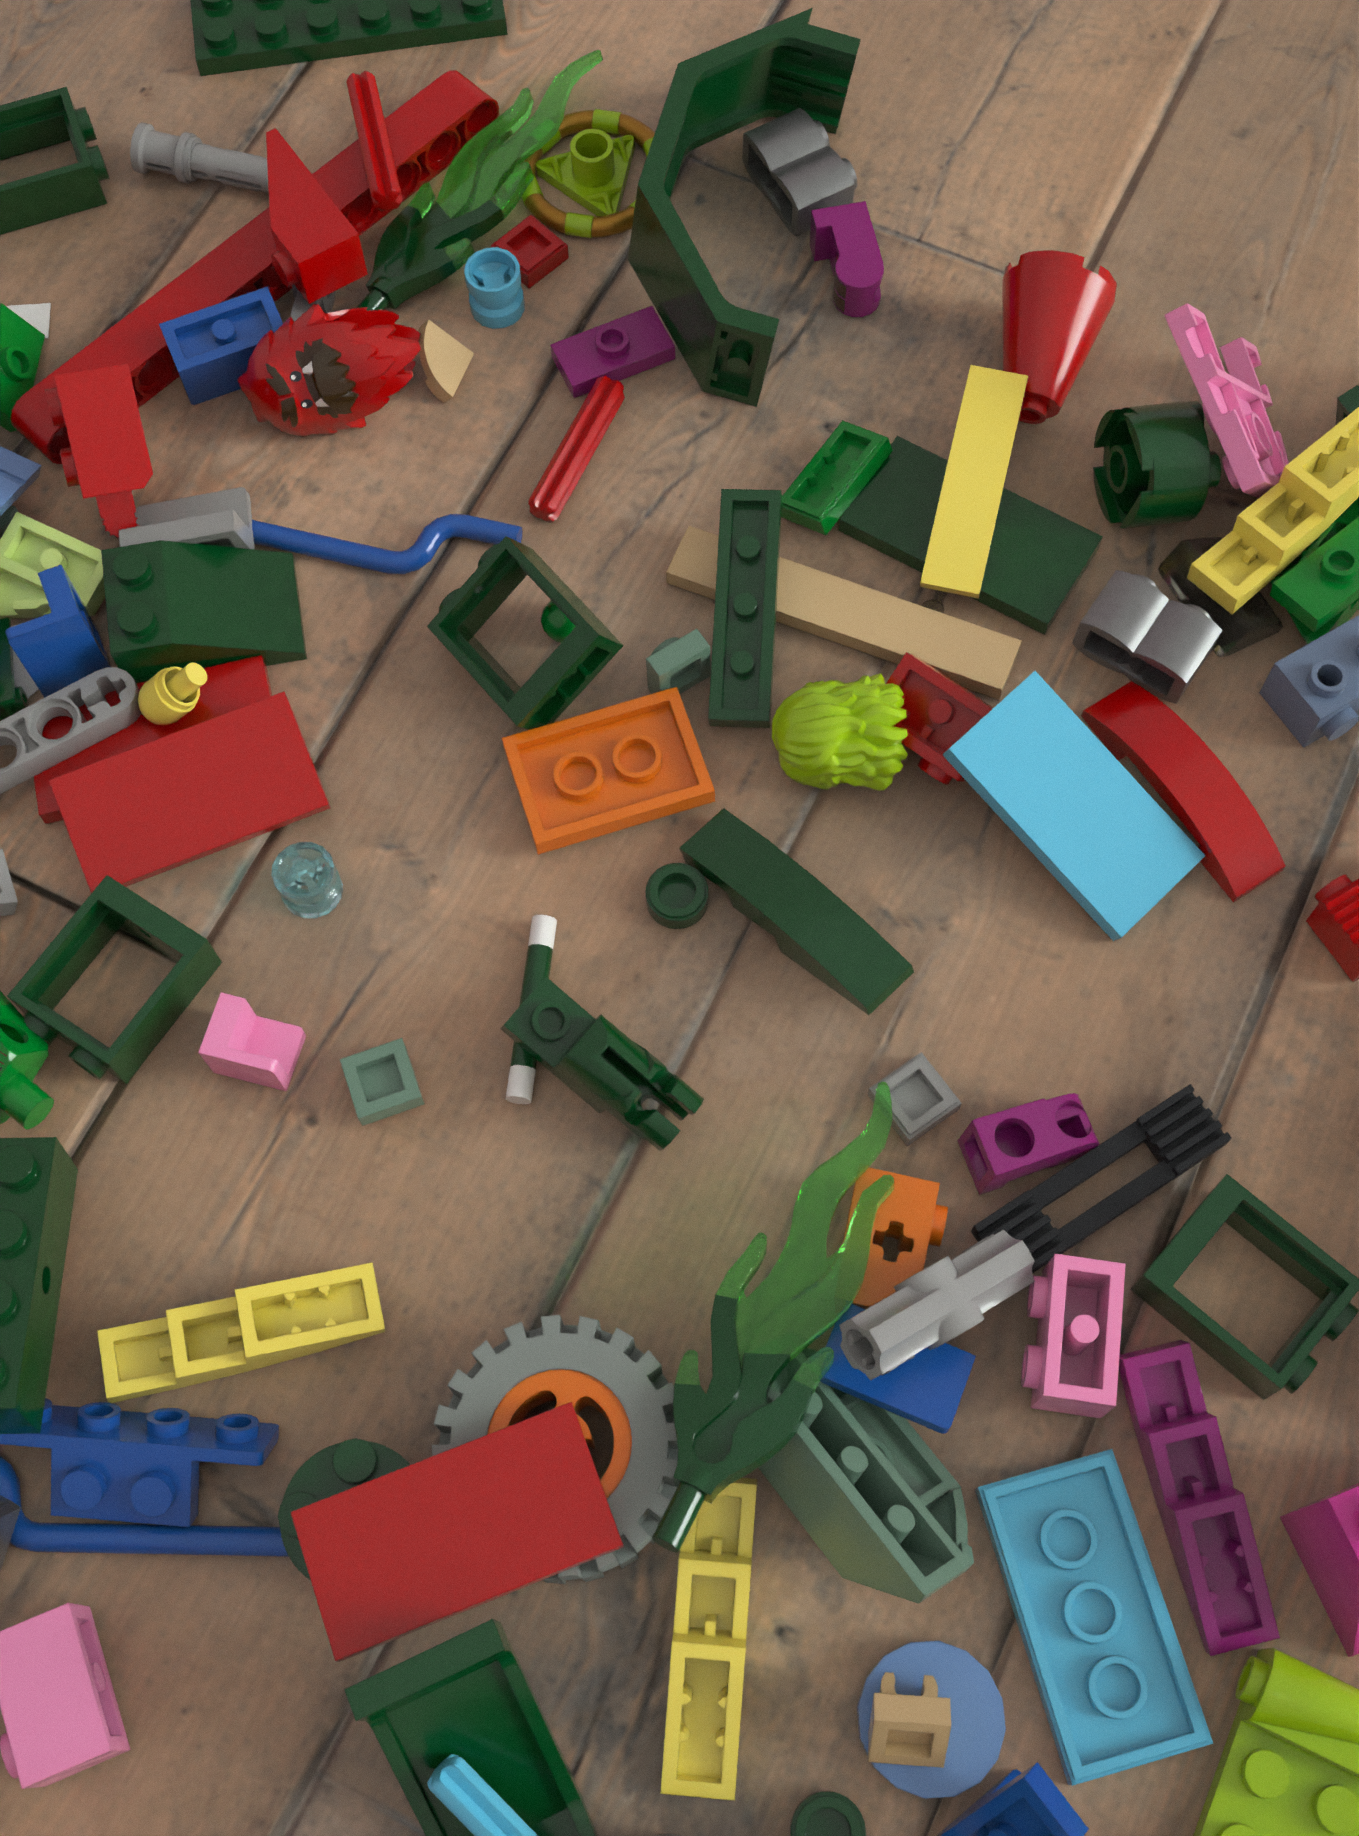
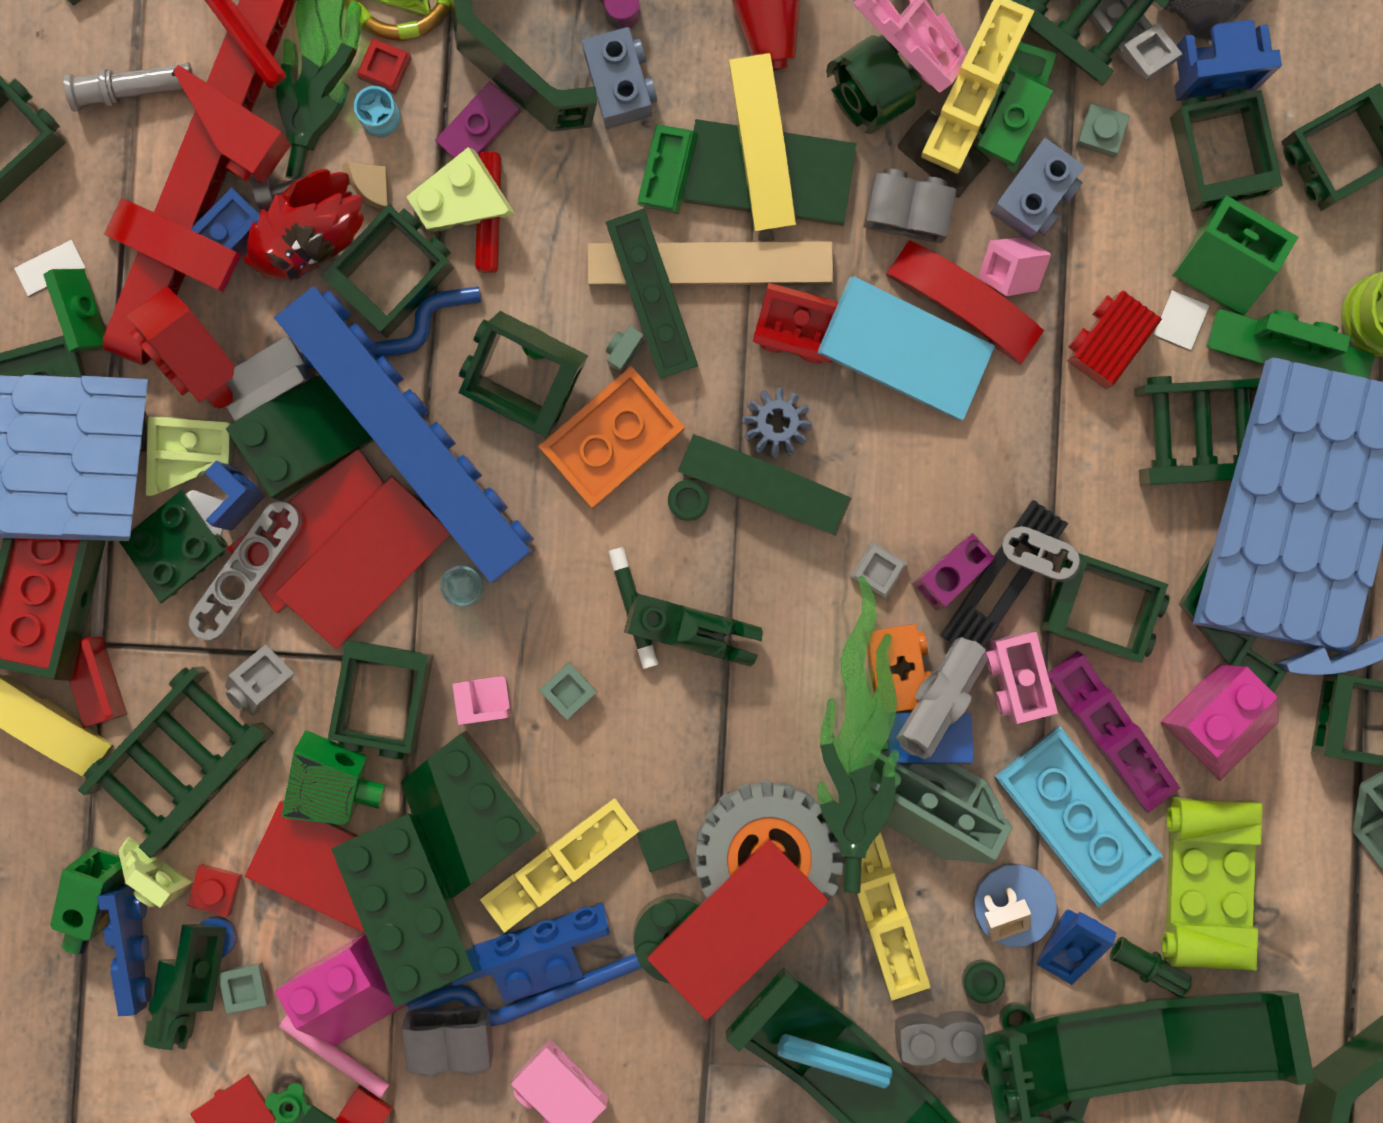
camera: 25 degrees left, 20 degrees up
(149, 1194) = (467, 812): none -> dark green wedge
(165, 324) = (172, 244): none -> red slope
(171, 693) = (319, 504): light yellow cylinder -> none
(334, 651) = (402, 432): none -> blue brick
(402, 424) = (364, 245): none -> dark green window
(411, 1371) = (662, 845): none -> dark green tile
(548, 409) = (459, 195): none -> yellowish green wing
(815, 355) = (618, 78): none -> sand blue brick
(842, 733) = (747, 358): lime hair -> none
(871, 838) = (788, 414): none -> sand blue gear
(1183, 1145) = (1045, 544): none -> light grey beam
(1272, 762) = (1014, 266): none -> bright pink panel

